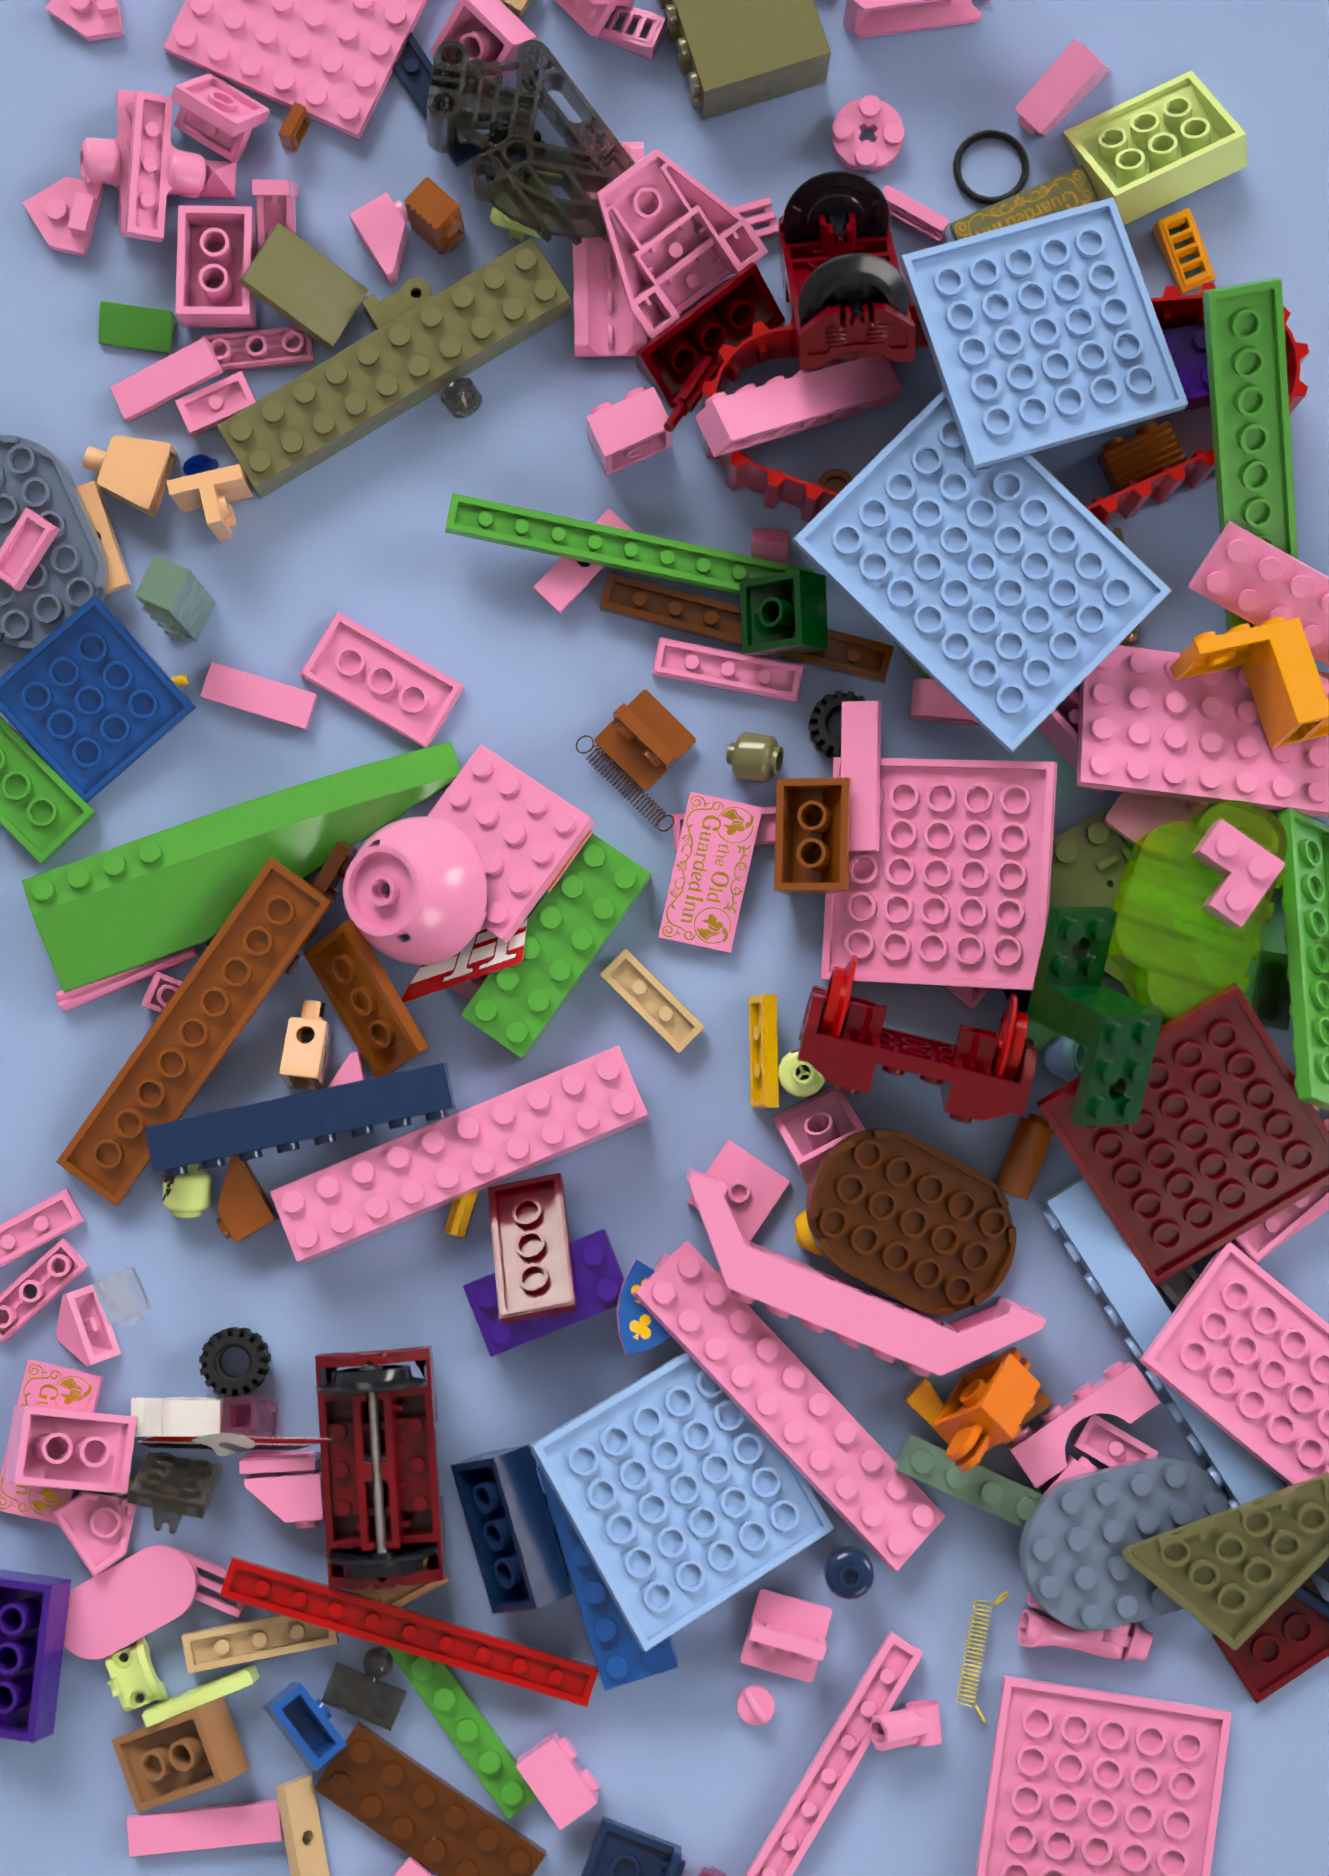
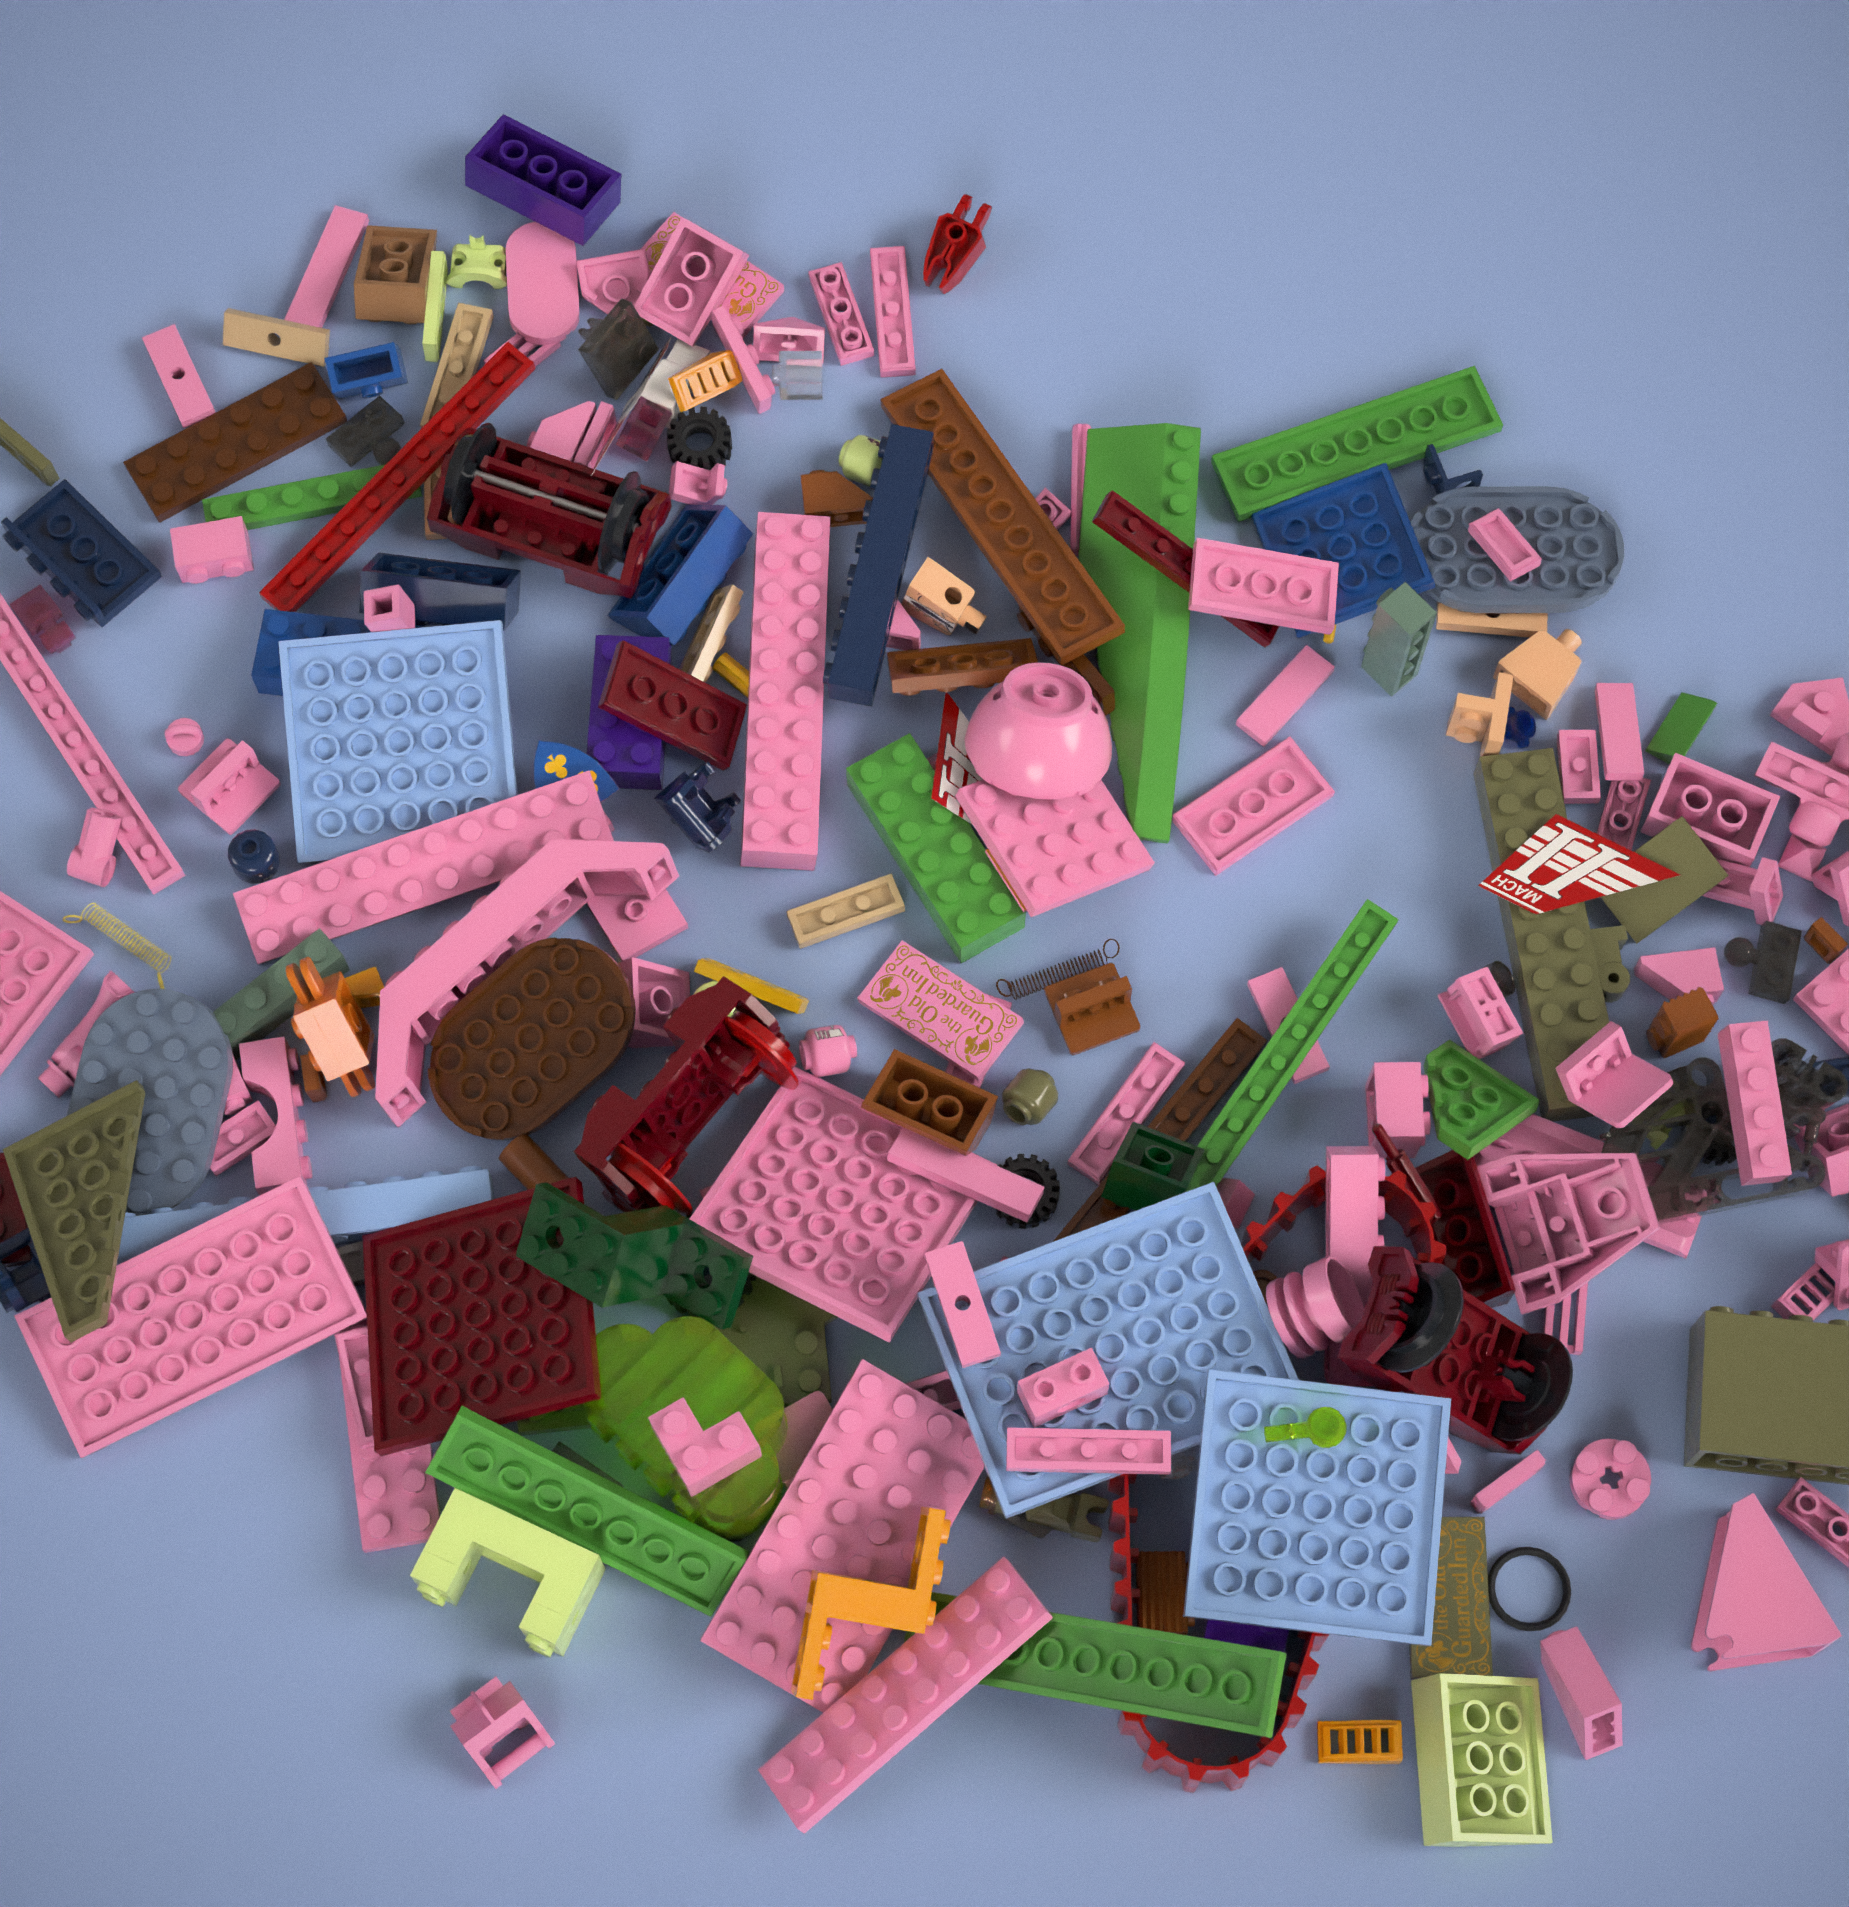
camera: 115 degrees right, 15 degrees down
(129, 1358) = (729, 331): none -> bright pink tile
(155, 1368) = (724, 374): none -> light orange slope
(170, 748) = (1263, 586): none -> bright pink plate
(179, 829) = (1162, 552): none -> dark red tile
(283, 1340) = (697, 485): none -> bright pink bracket
(332, 168) = (1772, 960): none -> clear smoke plate
(332, 365) = (1567, 867): none -> sticker
(381, 1310) = (683, 572): none -> blue slope
(437, 1254) = (710, 633): none -> tan plate
(500, 112) = (1754, 1103): none -> bright pink brick
(502, 395) = (1480, 1013): none -> bright pink hinge
(530, 241) = (1610, 1079): none -> bright pink bracket
(569, 1558) = (388, 609): none -> bright pink brick
(591, 367) = (1472, 1100): none -> bright green plate
(619, 1176) = (694, 810): none -> dark blue piece
(794, 955) = (827, 1050): none -> bright pink head
(863, 408) = (1314, 1306): none -> bright pink wheel
(982, 348) = (1323, 1427): none -> clear neon green plate
(1026, 687) = (955, 1283): none -> bright pink tile
(1047, 583) = (1062, 1387): none -> bright pink brick
(1089, 540) = (1088, 1451): none -> bright pink plate

